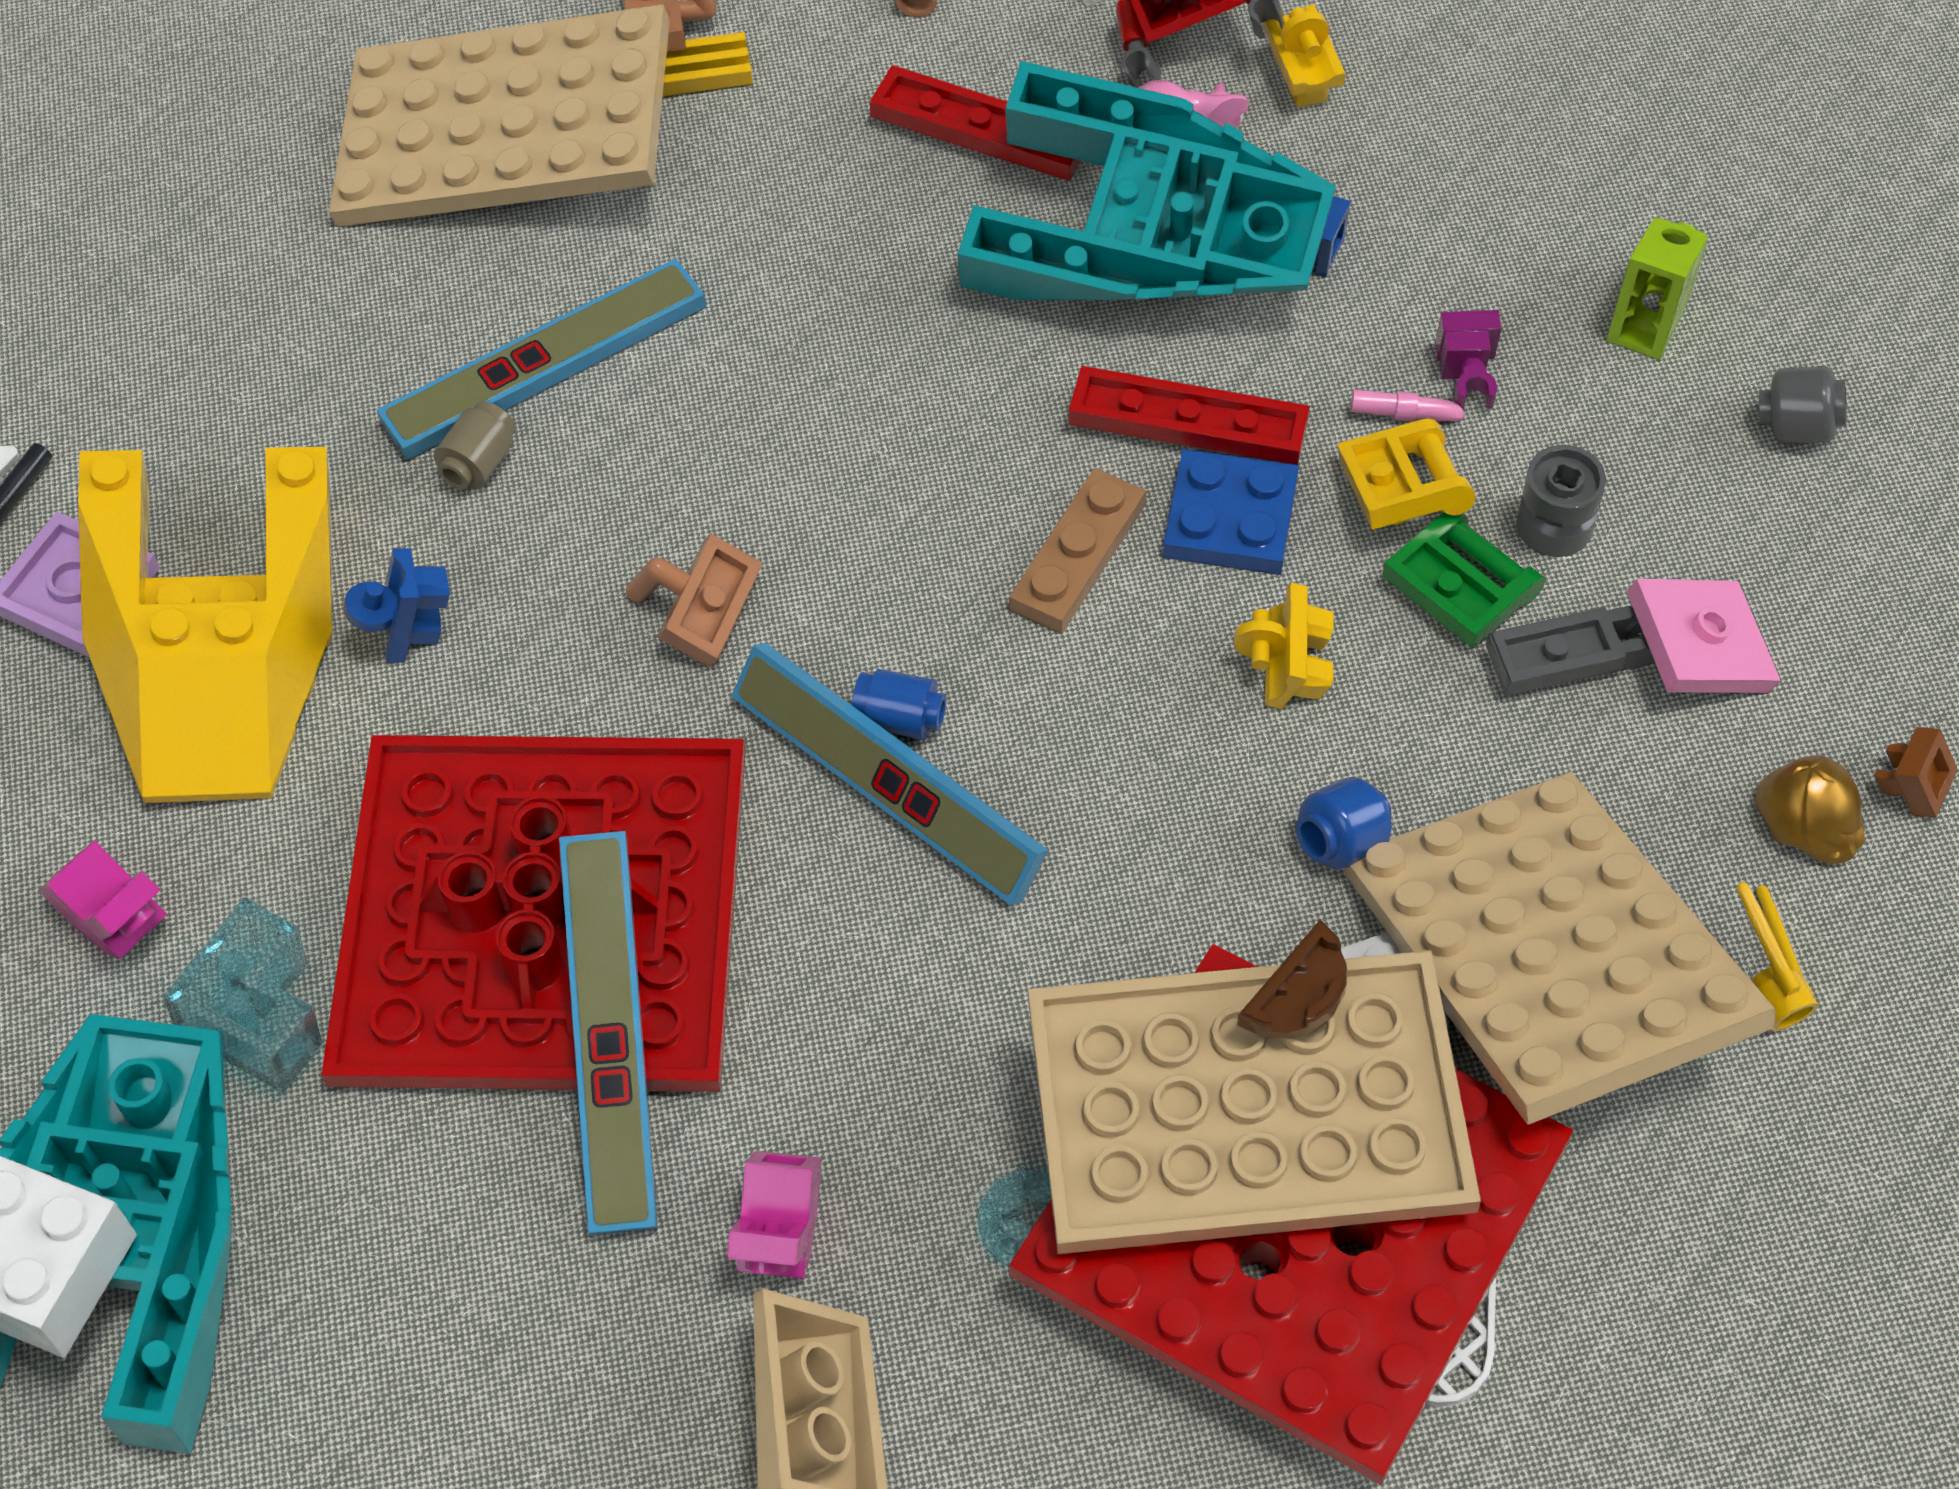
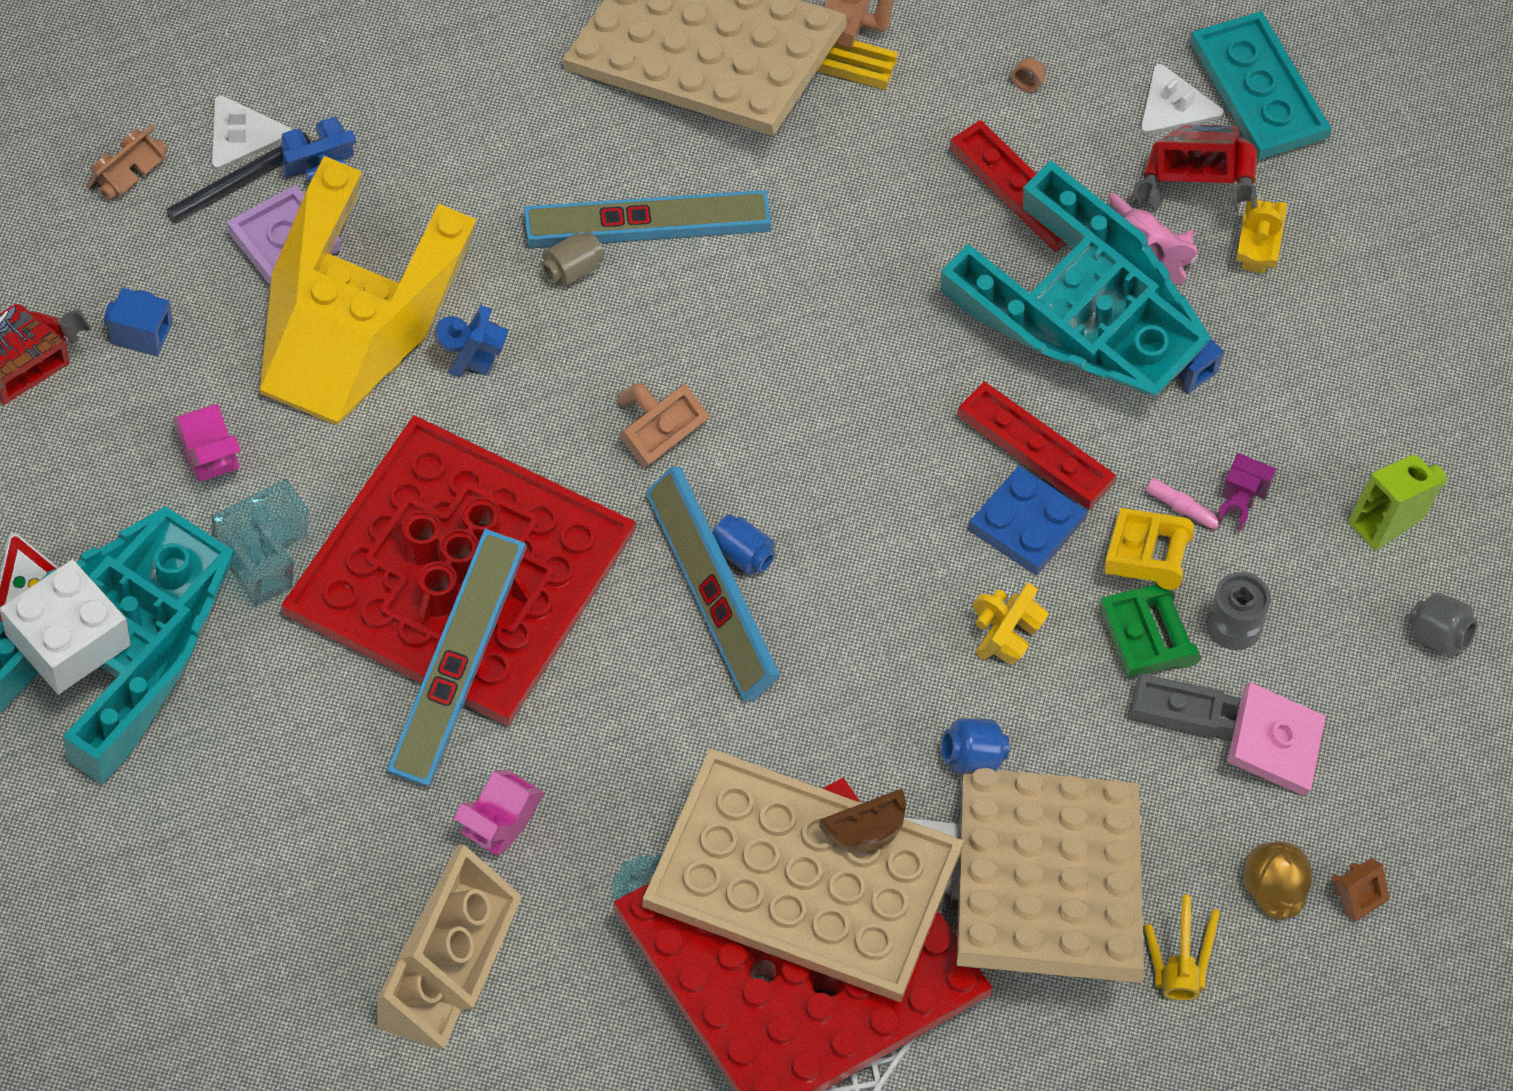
camera: 20 degrees right, 0 degrees up
(57, 471) = (306, 158): none -> blue hips
(1077, 550) = (914, 500): medium nougat plate -> none

